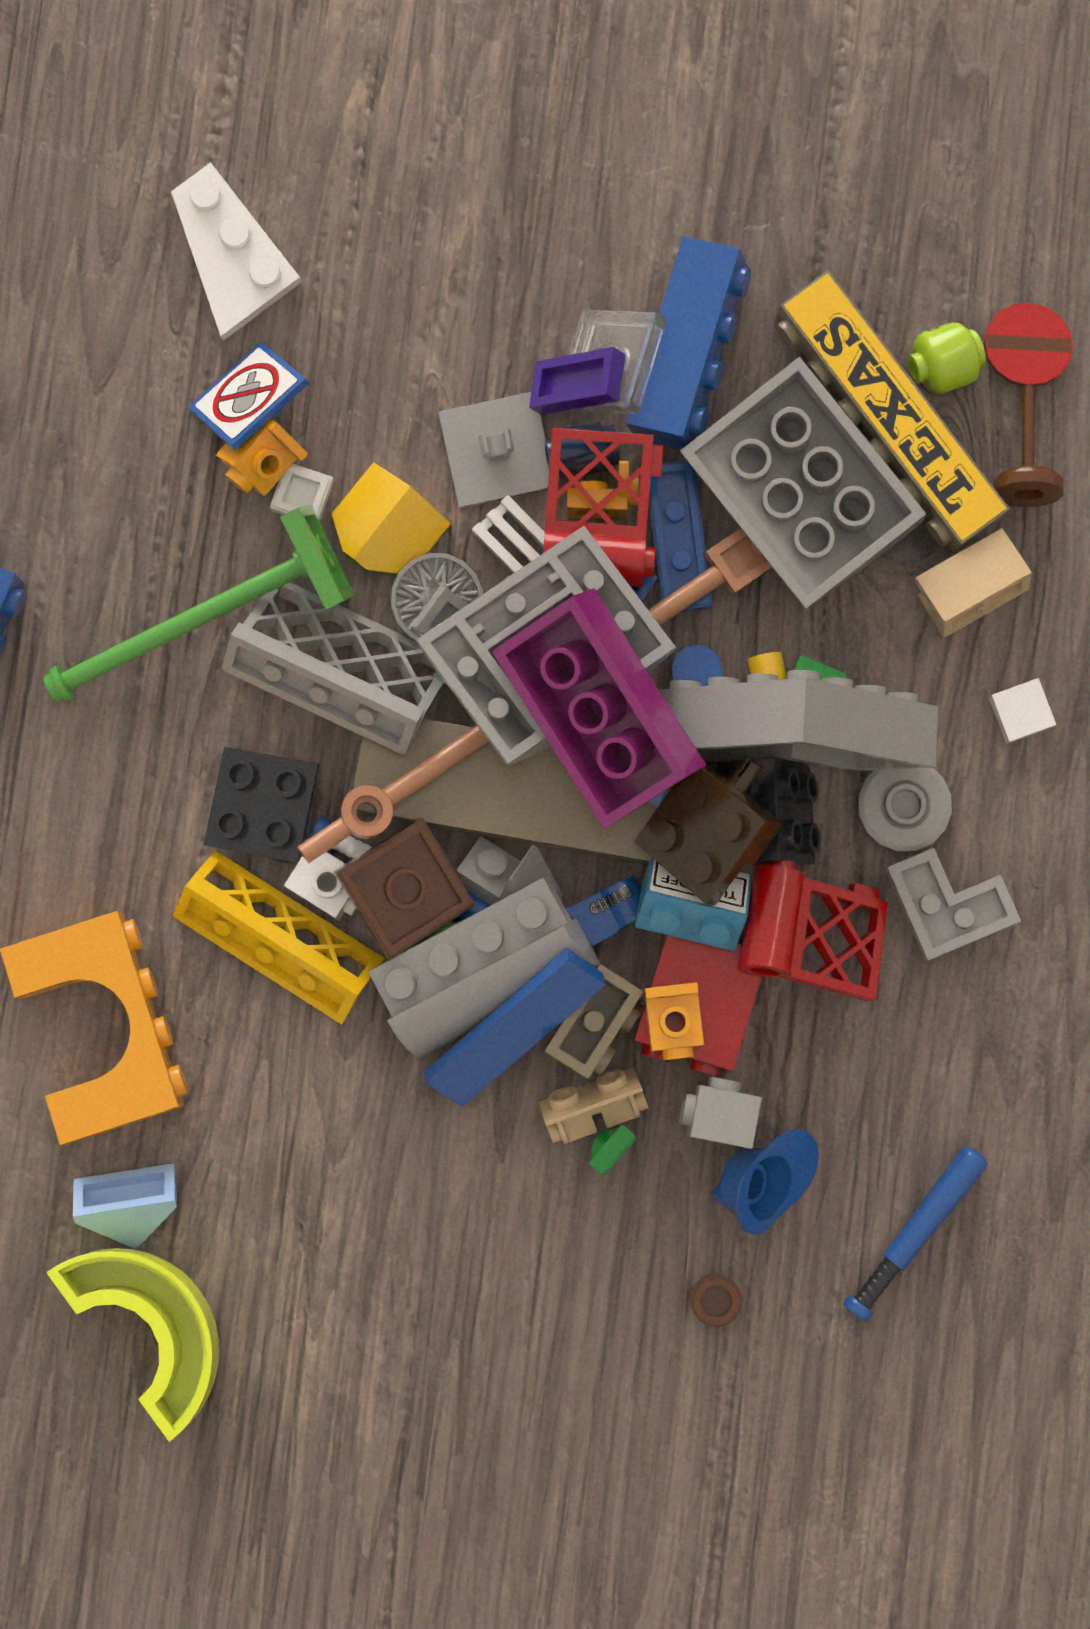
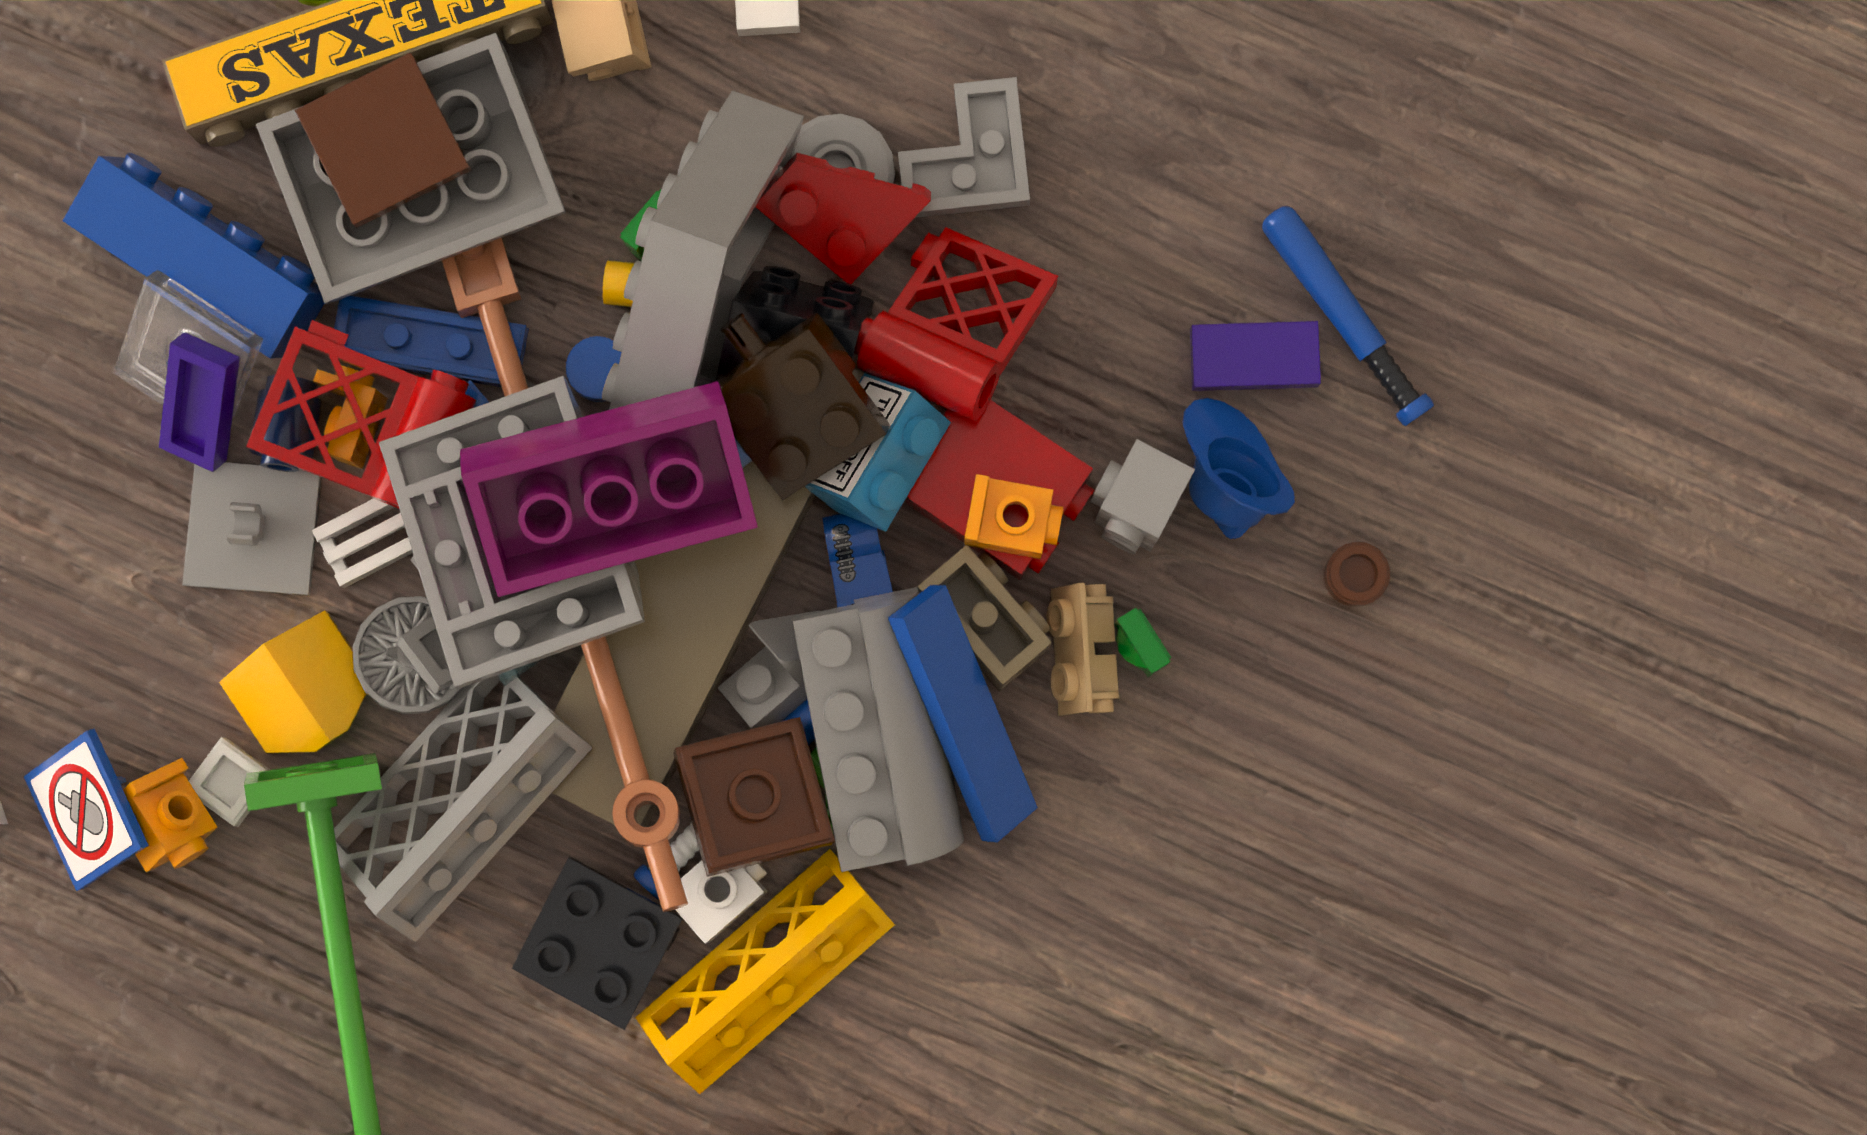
camera: 70 degrees left, 0 degrees up
(816, 455) = (383, 140): none -> reddish brown tile
(861, 1171) = (1255, 356): none -> dark purple tile
(872, 817) = (839, 212): none -> red wing

